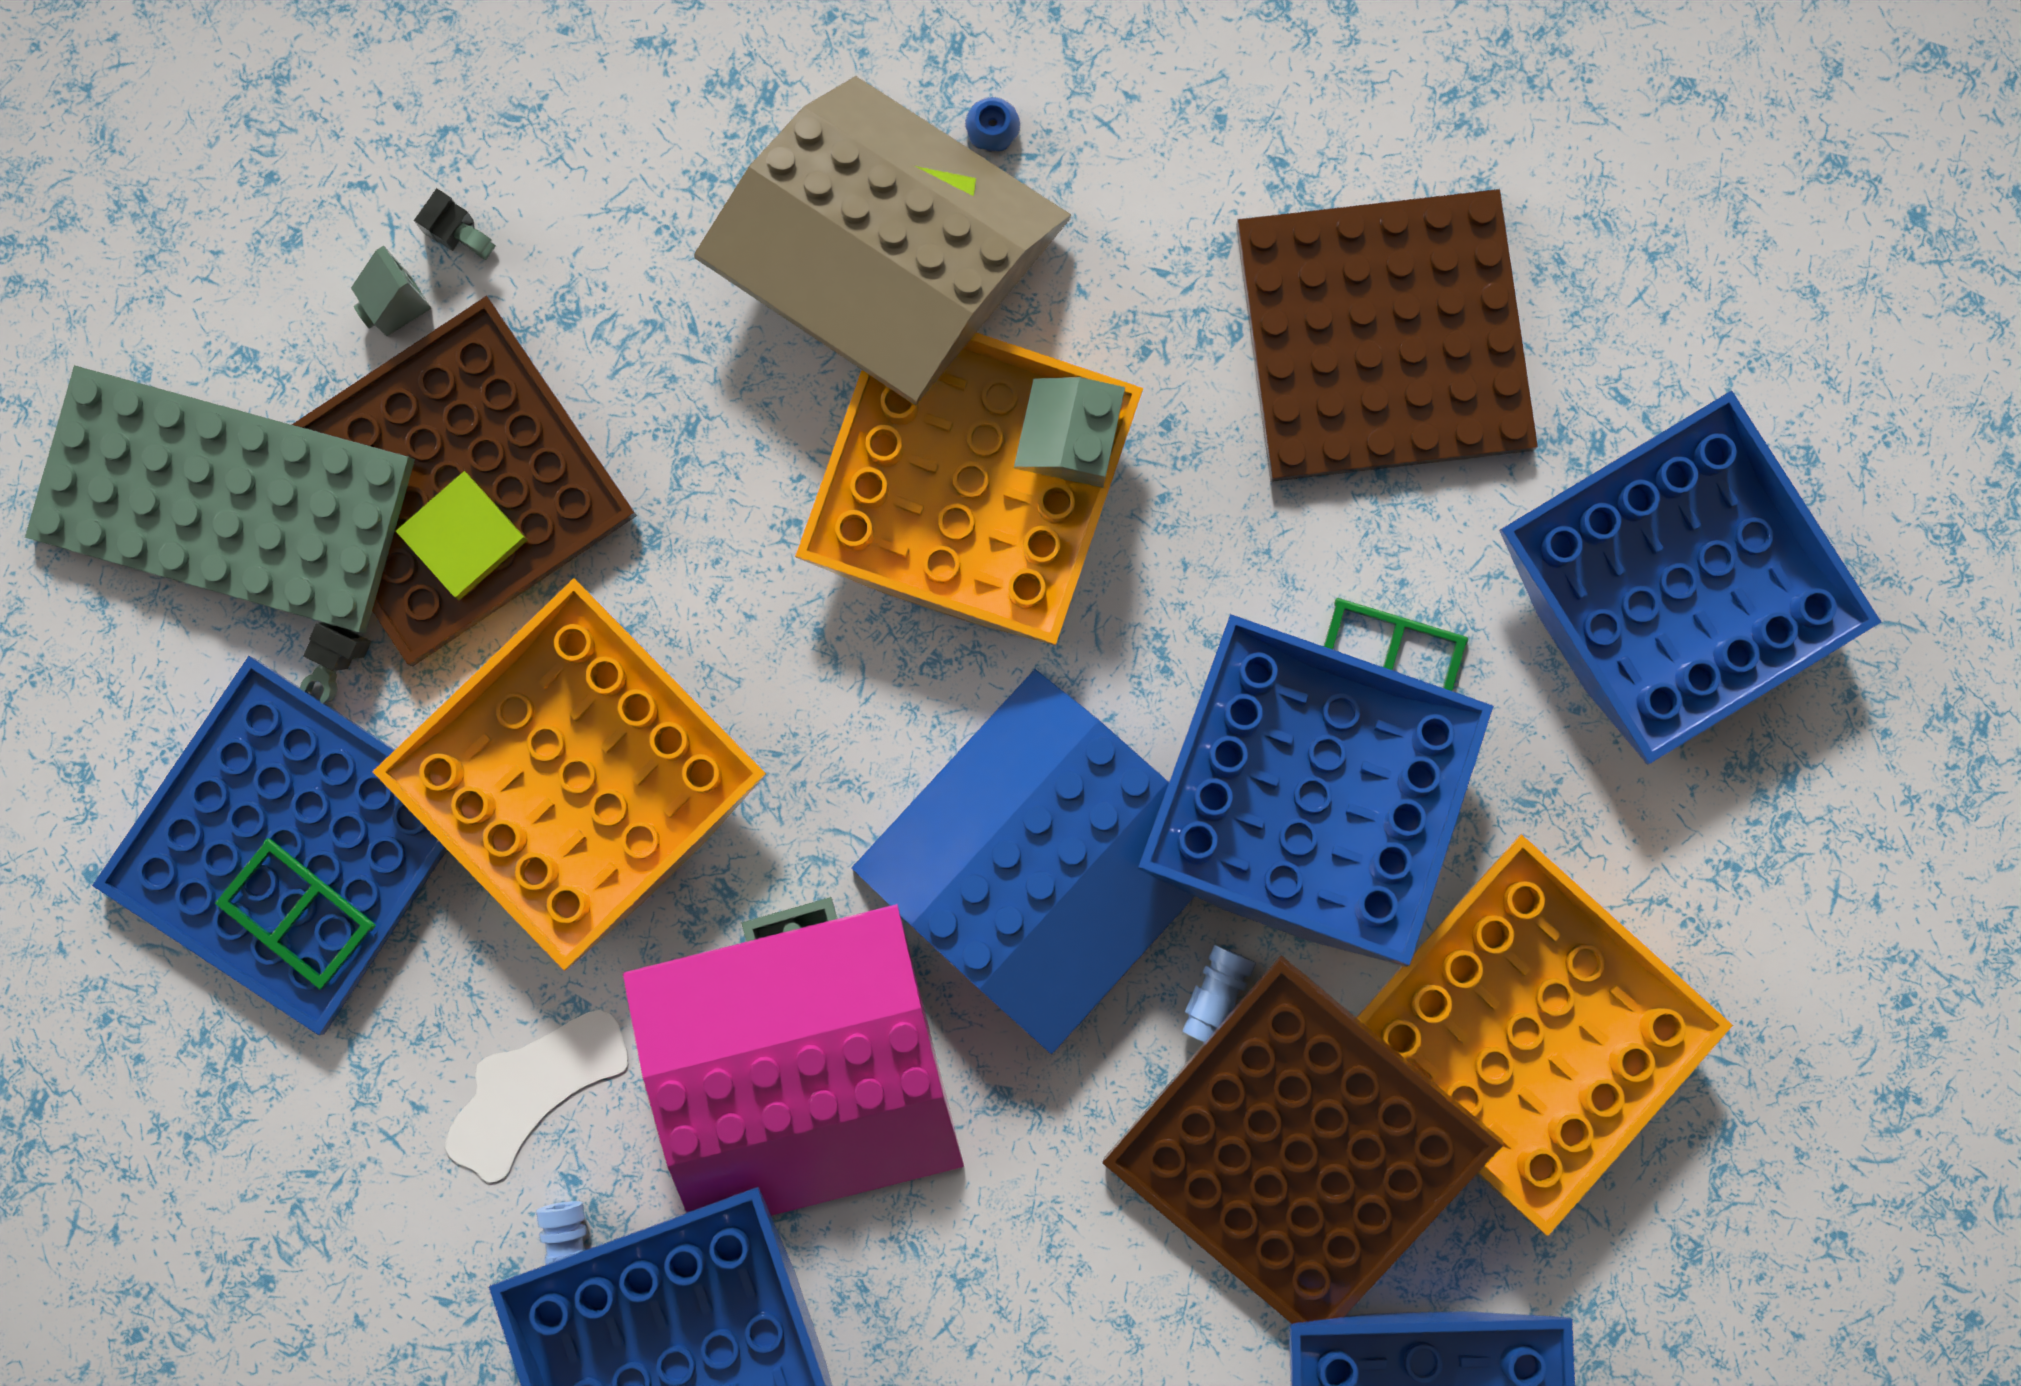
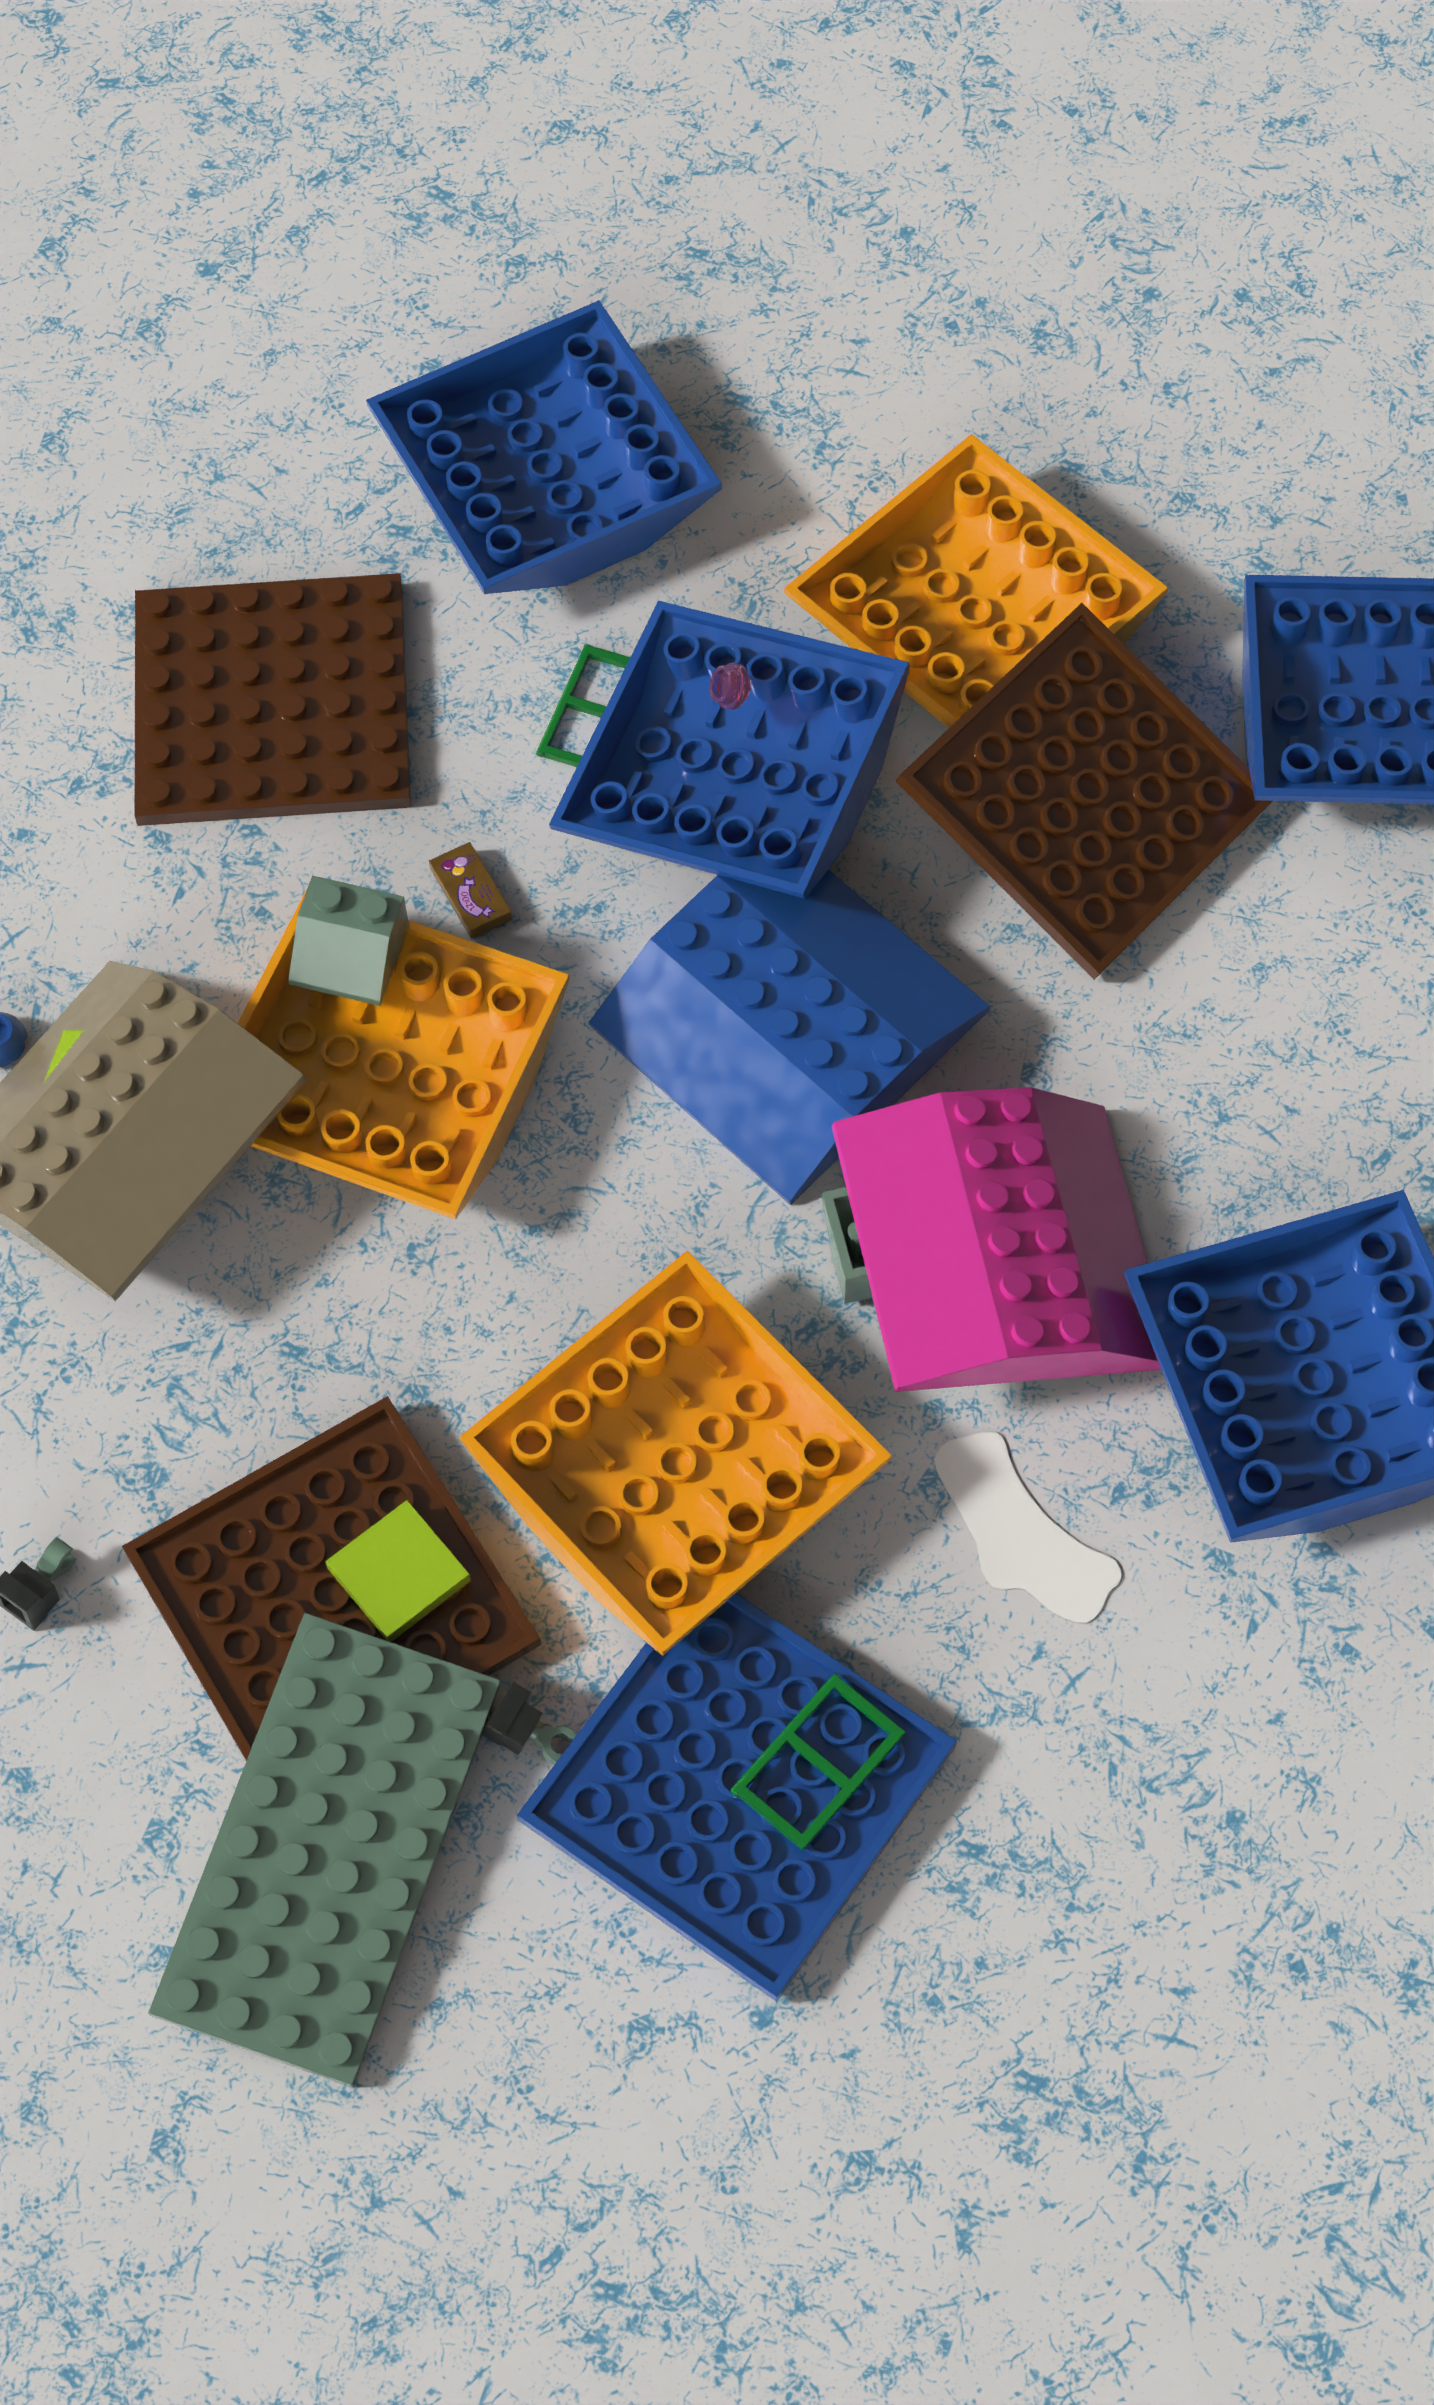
camera: 85 degrees left, 20 degrees down
(387, 294) = (106, 1645): sand green slope -> none
(561, 1229) = (1174, 1489): light blue axle -> none
(1174, 545) = (470, 890): none -> pearl gold tile
(1218, 993) = (931, 866): light blue axle -> none
(1376, 783) = (730, 685): none -> clear pink plate

